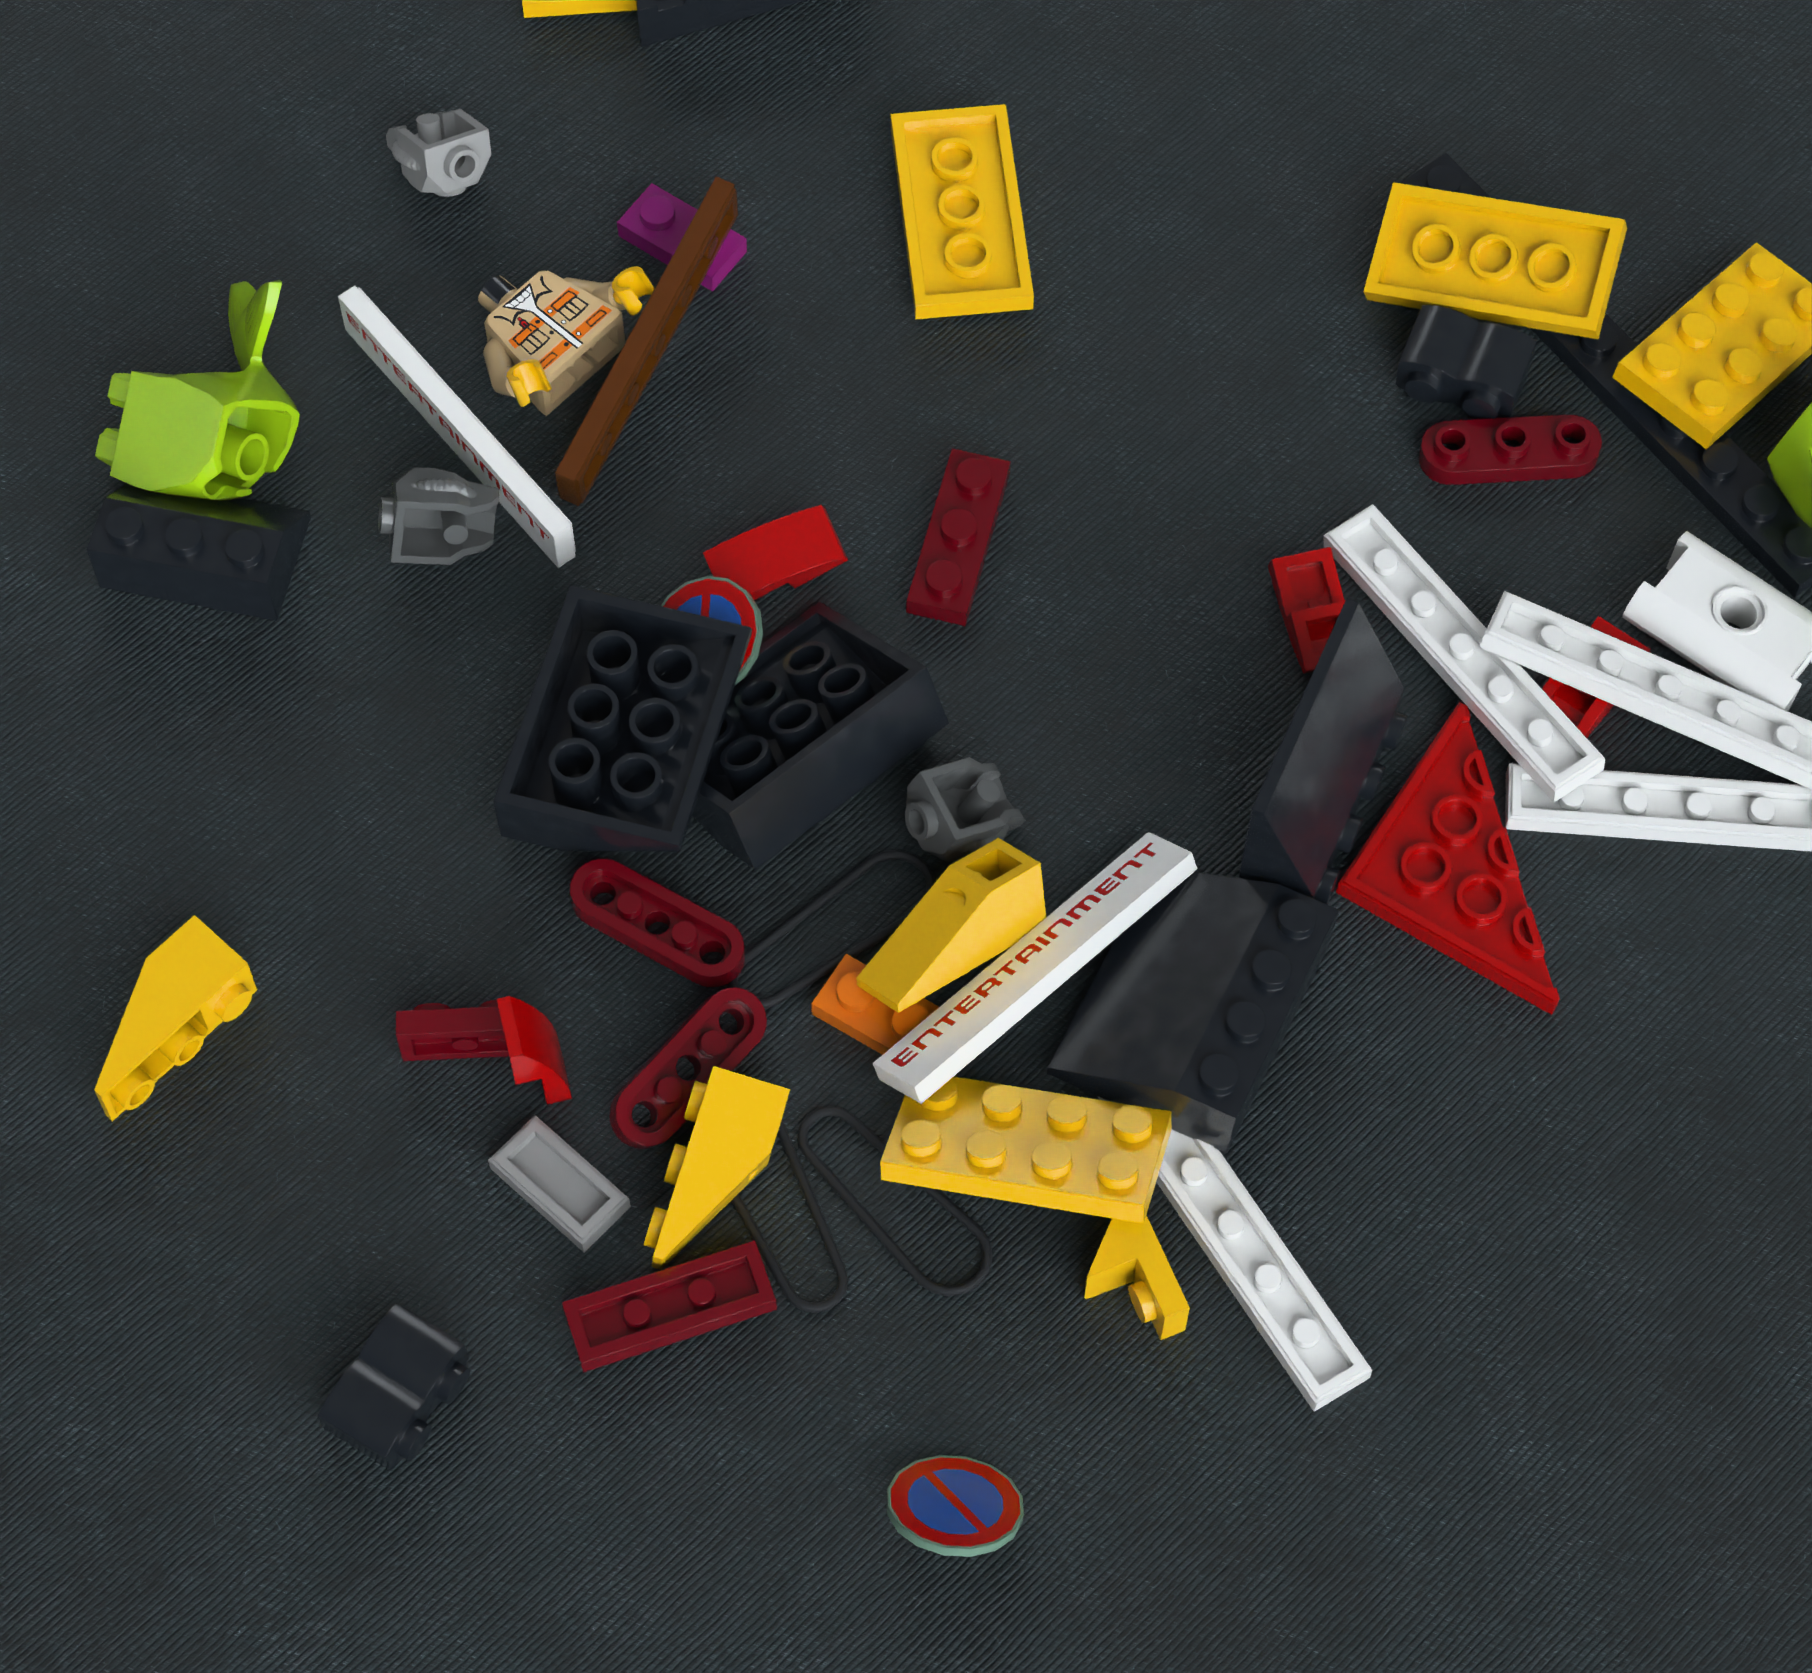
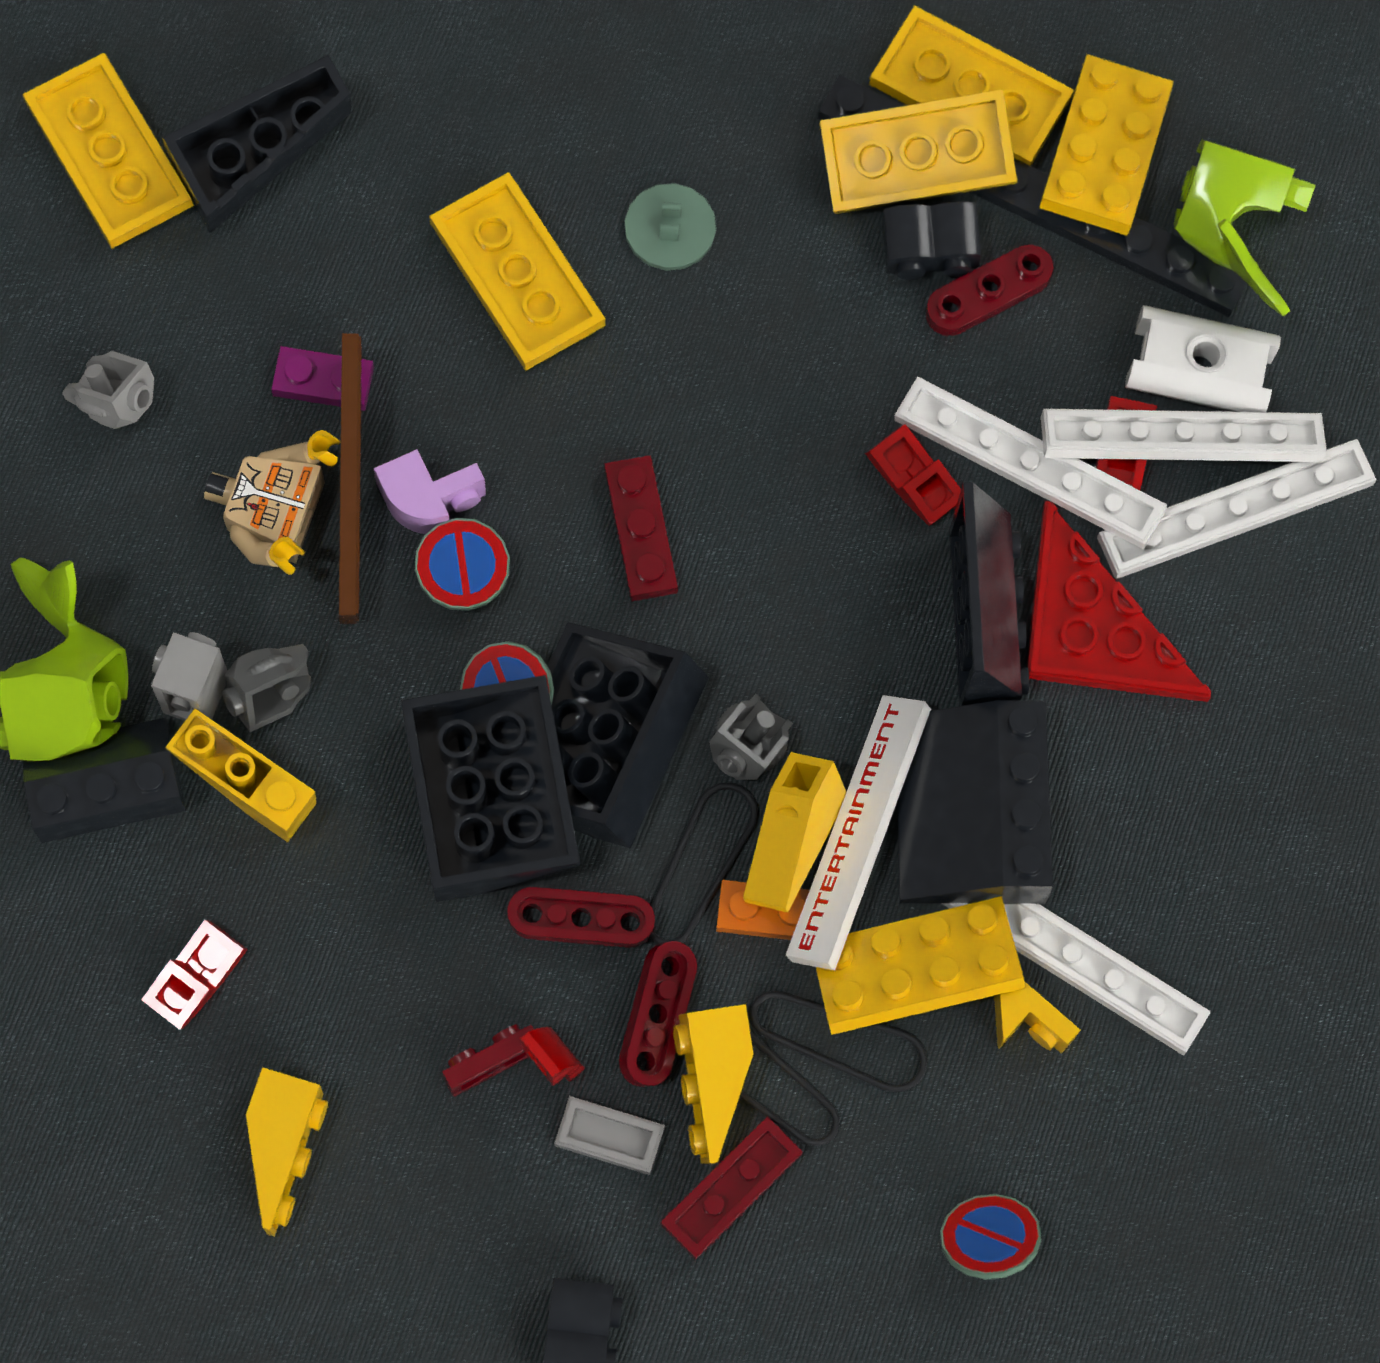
camera: 30 degrees left, 10 degrees up
(178, 799) = (195, 974): none -> slope
(347, 468) = (189, 675): none -> light grey brick
(354, 600) = (243, 775): none -> yellow slope
(458, 426) = (240, 603): white tile -> none
(723, 405) = (418, 500): none -> lavender brick
(727, 484) = (462, 564): none -> piece
(779, 552) = (523, 601): red slope -> none
(1165, 238) = (670, 226): none -> sand green piece
(1576, 173) = (941, 62): none -> yellow plate

